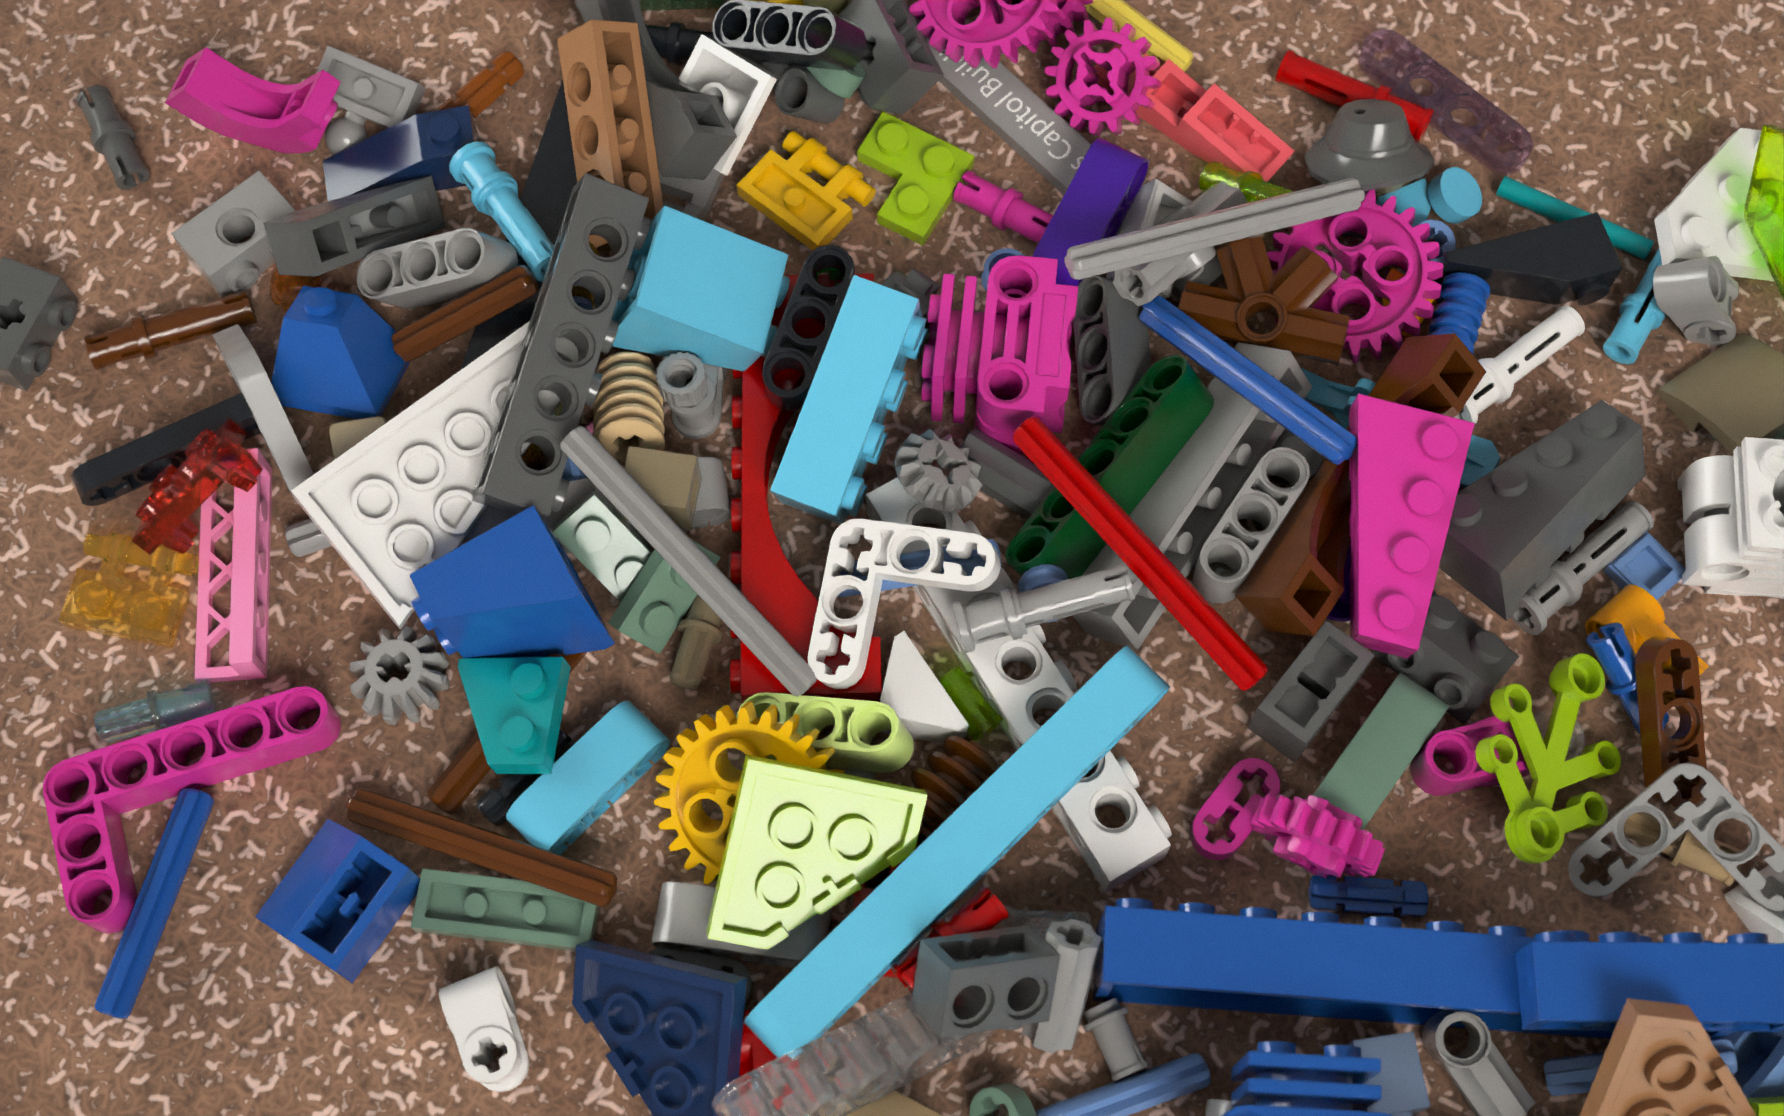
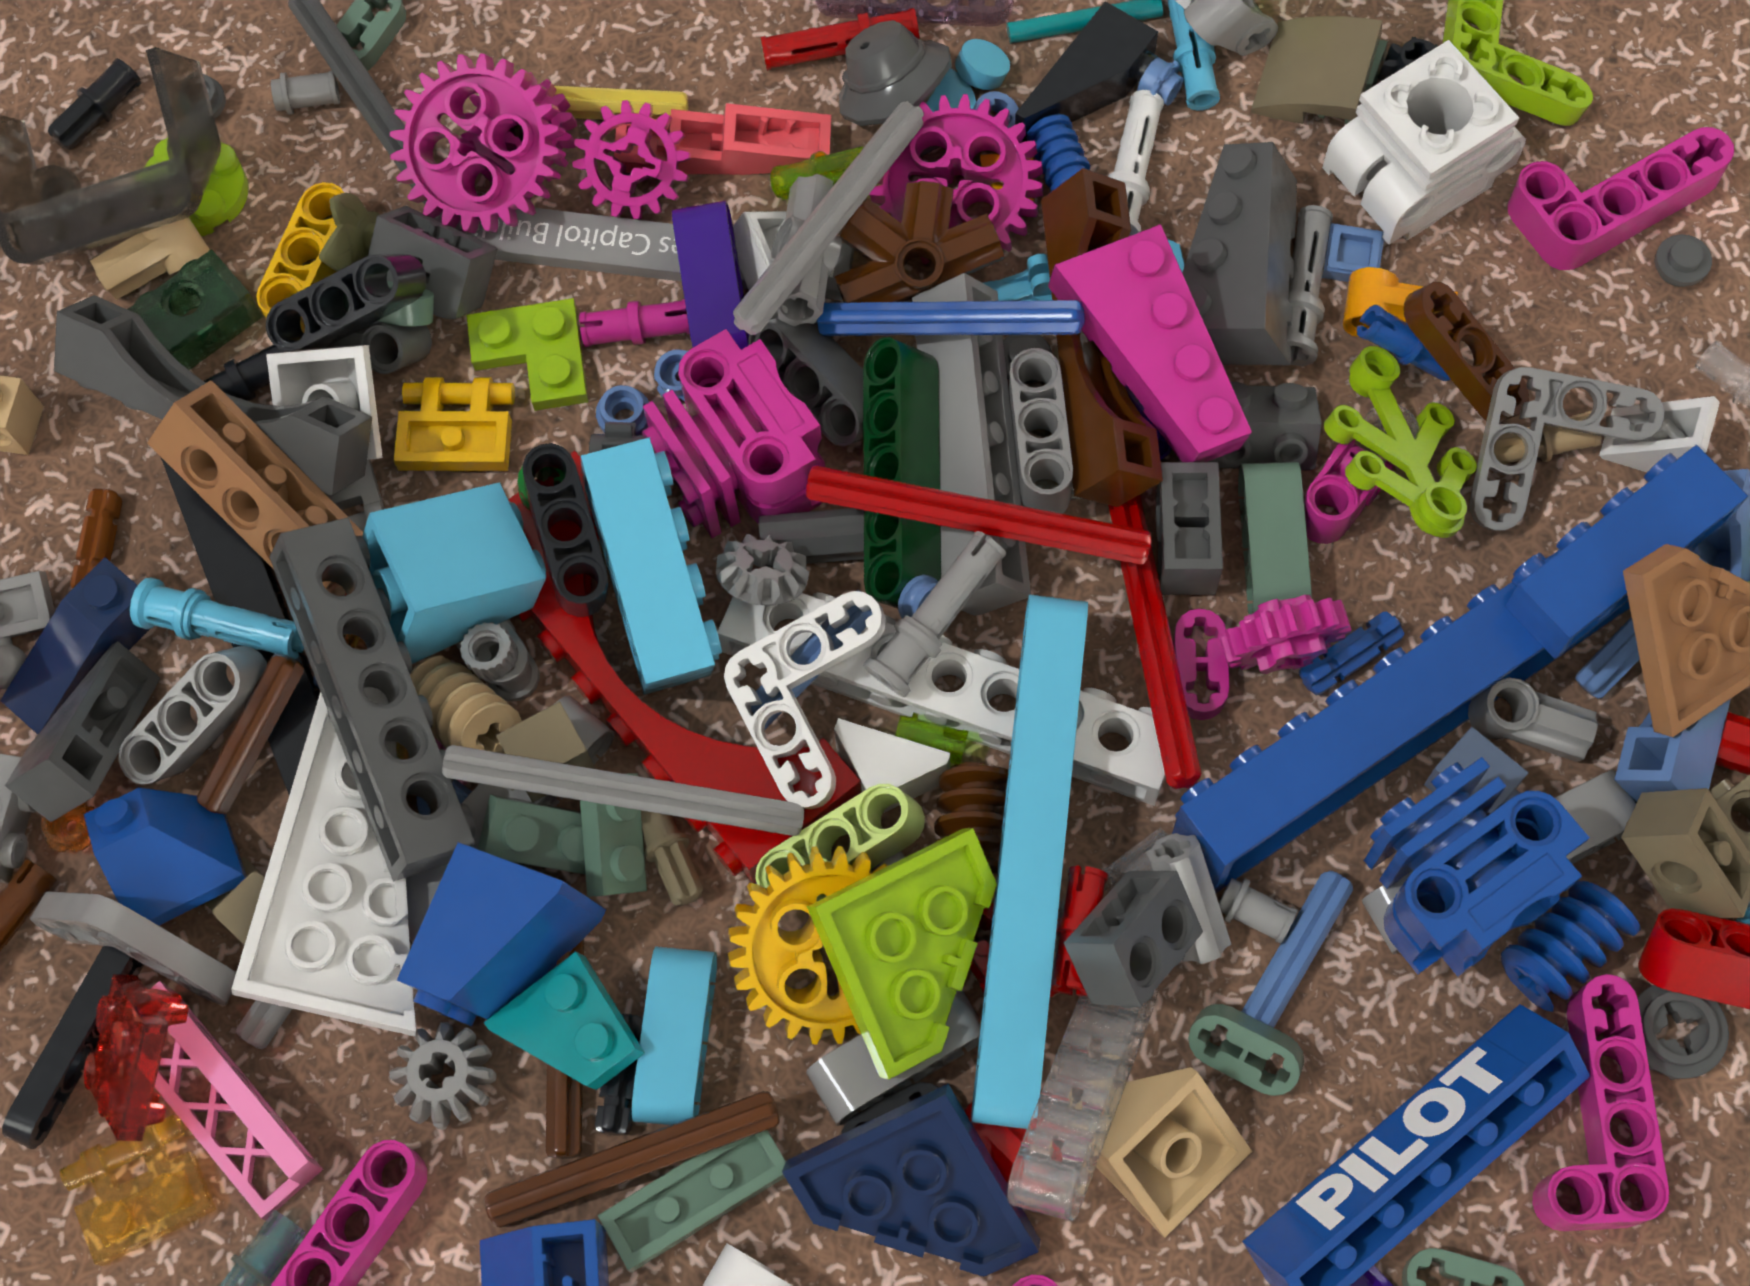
camera: 35 degrees left, 0 degrees up
(945, 259) = (622, 398): none -> medium blue plate
(1199, 772) = (1158, 658): none -> red axle
(1597, 311) = (1162, 79): none -> medium blue plate

